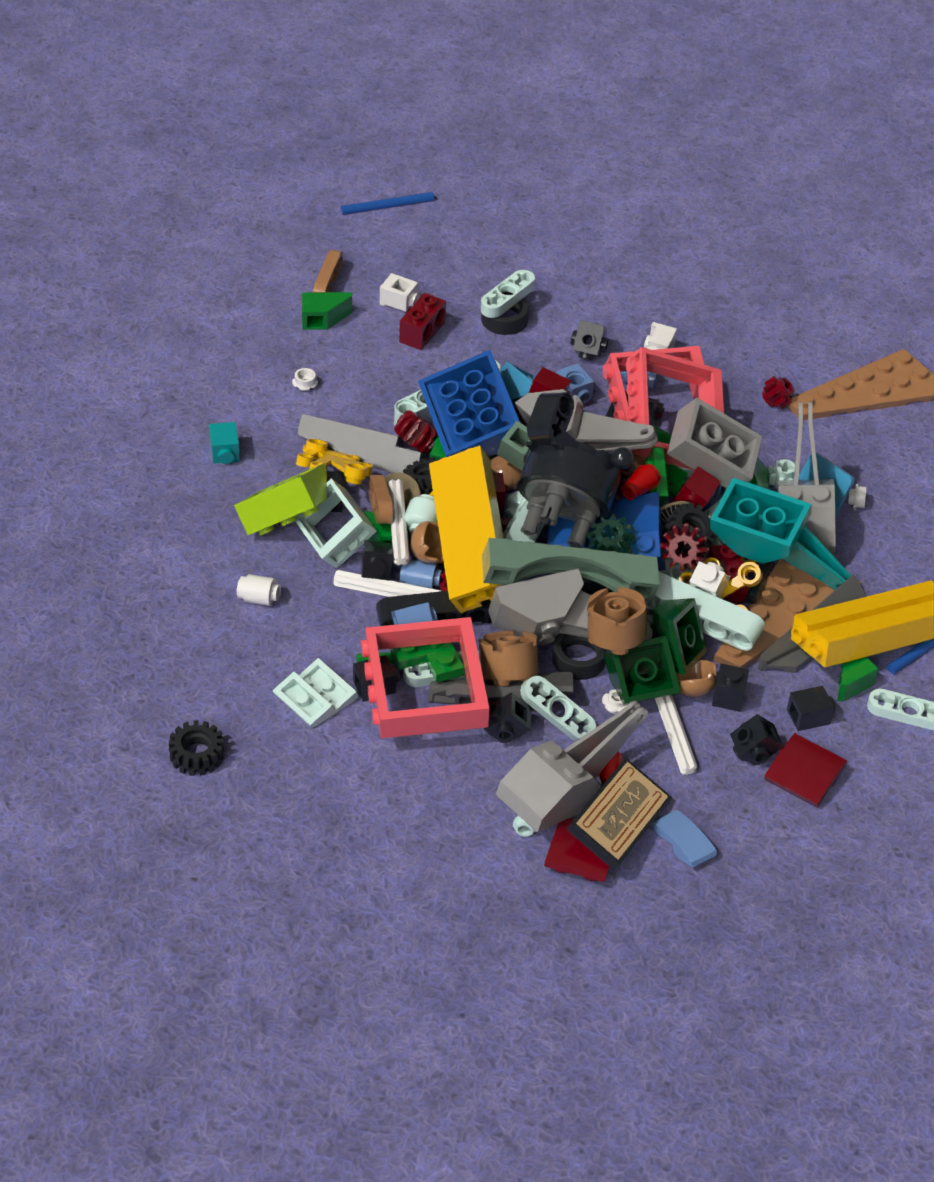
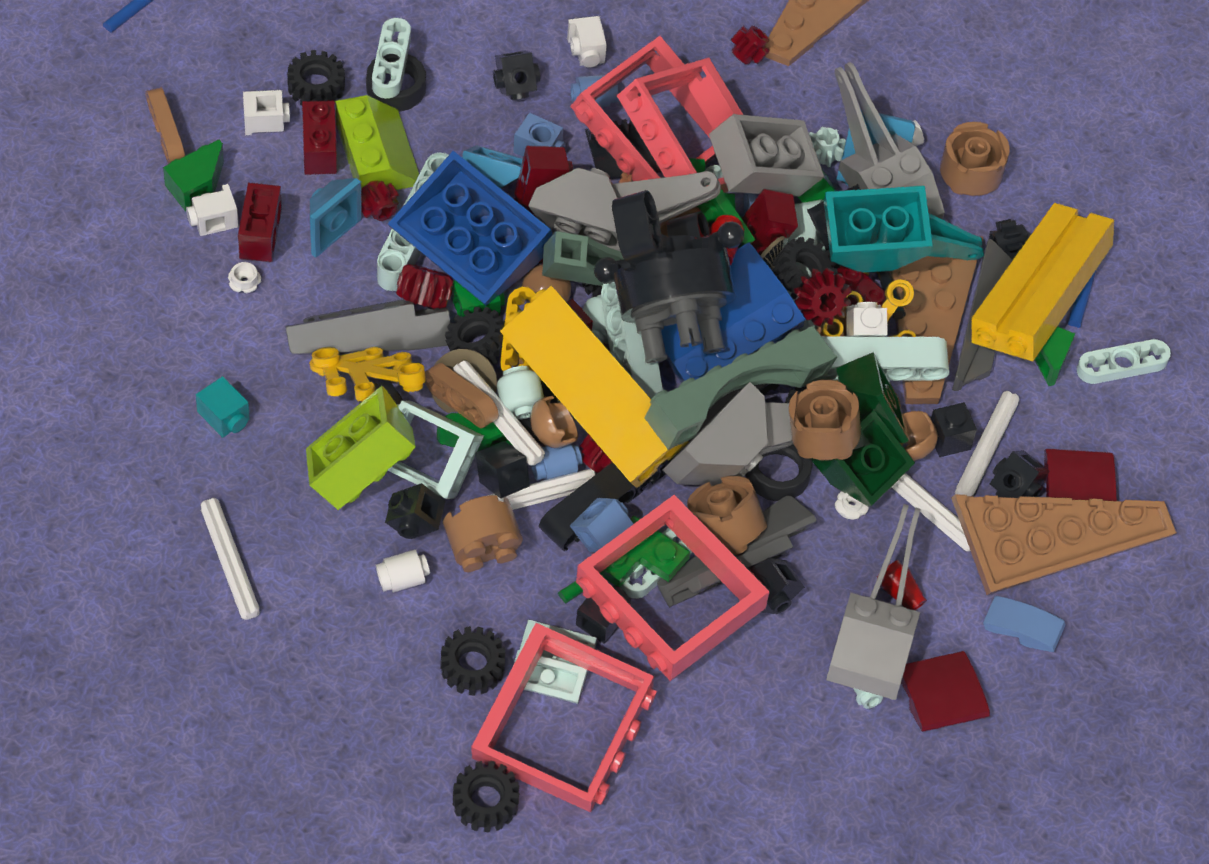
camera: 35 degrees left, 10 degrees up
(154, 531) = (230, 559): none -> white axle
(259, 676) = (472, 642): none -> black tyre
(266, 691) = (545, 639): none -> coral window
(294, 556) = (415, 511): none -> black brick
(316, 334) = (213, 212): none -> white brick
(329, 588) = (483, 532): none -> medium nougat brick
(339, 350) = (260, 222): none -> dark red brick
(389, 366) = (333, 212): none -> dark azure slope
(428, 367) = (379, 200): none -> dark red gear
(456, 337) = (375, 142): none -> lime slope
(457, 281) = (319, 65): none -> black tyre
(546, 688) = (801, 552): light aqua beam -> none
(607, 529) = (748, 314): gear -> none
(619, 813) = (956, 634): tile -> none
(747, 788) = (1045, 535): none -> medium nougat wing
(763, 708) = (987, 444): none -> white axle
(810, 708) = (1038, 411): black brick -> none
(878, 585) = (1009, 236): none -> black gear
(892, 528) = (974, 159): none -> medium nougat brick

